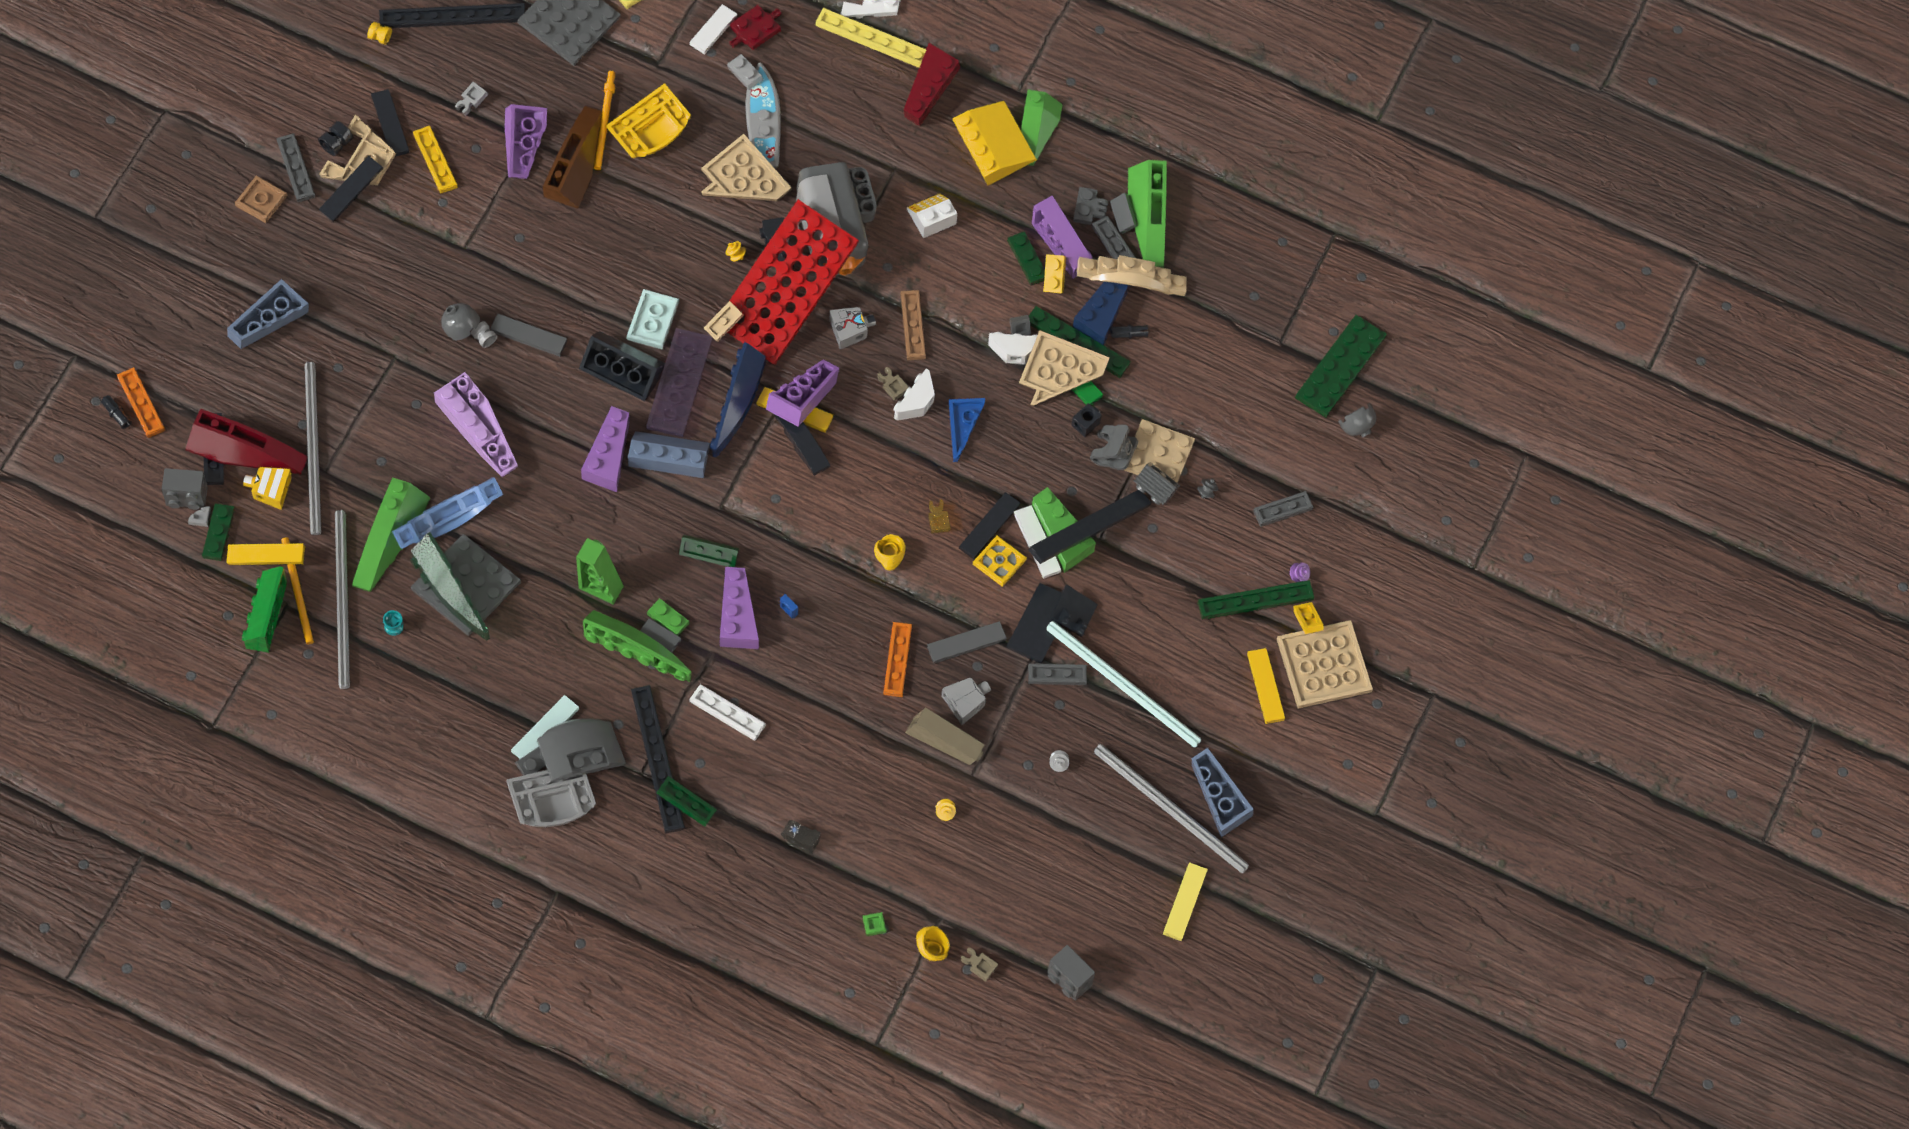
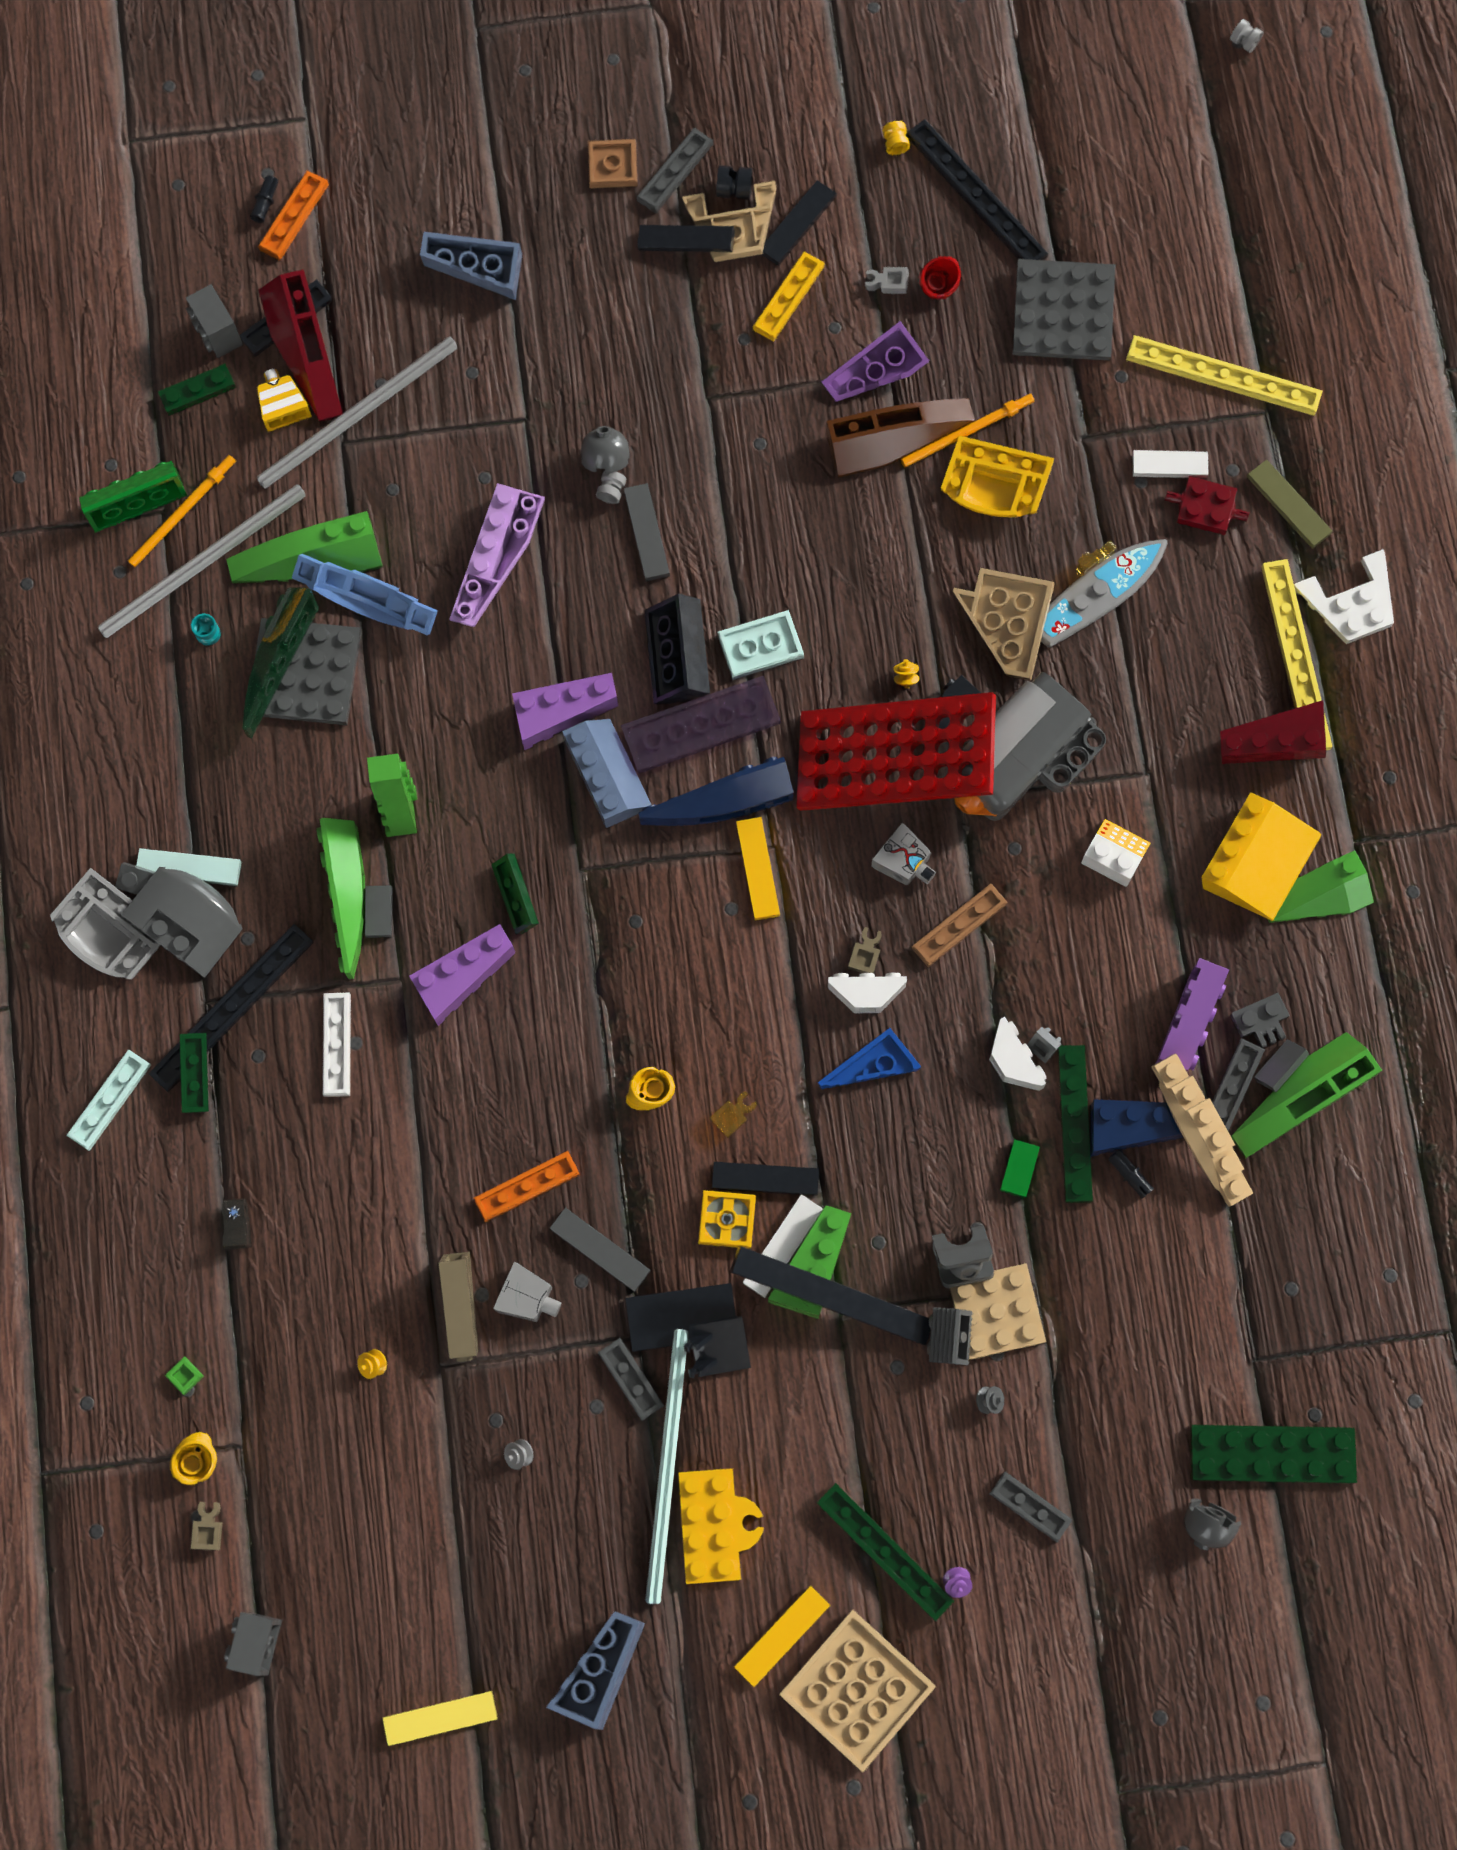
camera: 65 degrees right, 10 degrees up
(200, 517) = (203, 361): light grey tile -> none
(265, 554) = (198, 451): yellow tile -> none
(495, 68) = (940, 277): none -> red hair
(664, 865) = (108, 1100): none -> light aqua tile
(667, 617) = (408, 905): bright green plate -> none
(723, 321) = (803, 719): tan plate -> none
(742, 110) = (1089, 559): none -> clear yellow plate
(745, 71) = (1140, 532): light grey plate -> none
(789, 606) = (506, 1024): blue tile -> none
(804, 393) = (772, 864): medium lavender wedge -> none
(805, 446) = (722, 900): black slope -> none
(1027, 258) = (1141, 995): dark green plate -> none
(1054, 273) = (1139, 1039): yellow plate -> none
(1059, 367) = (1019, 1124): tan wing -> none
(1083, 426) = (967, 1205): black brick -> none
(1171, 808) = (547, 1626): light grey axle -> none
(1176, 682) = (714, 1526): none -> yellow plate
(1308, 618) = (901, 1632): yellow plate -> none

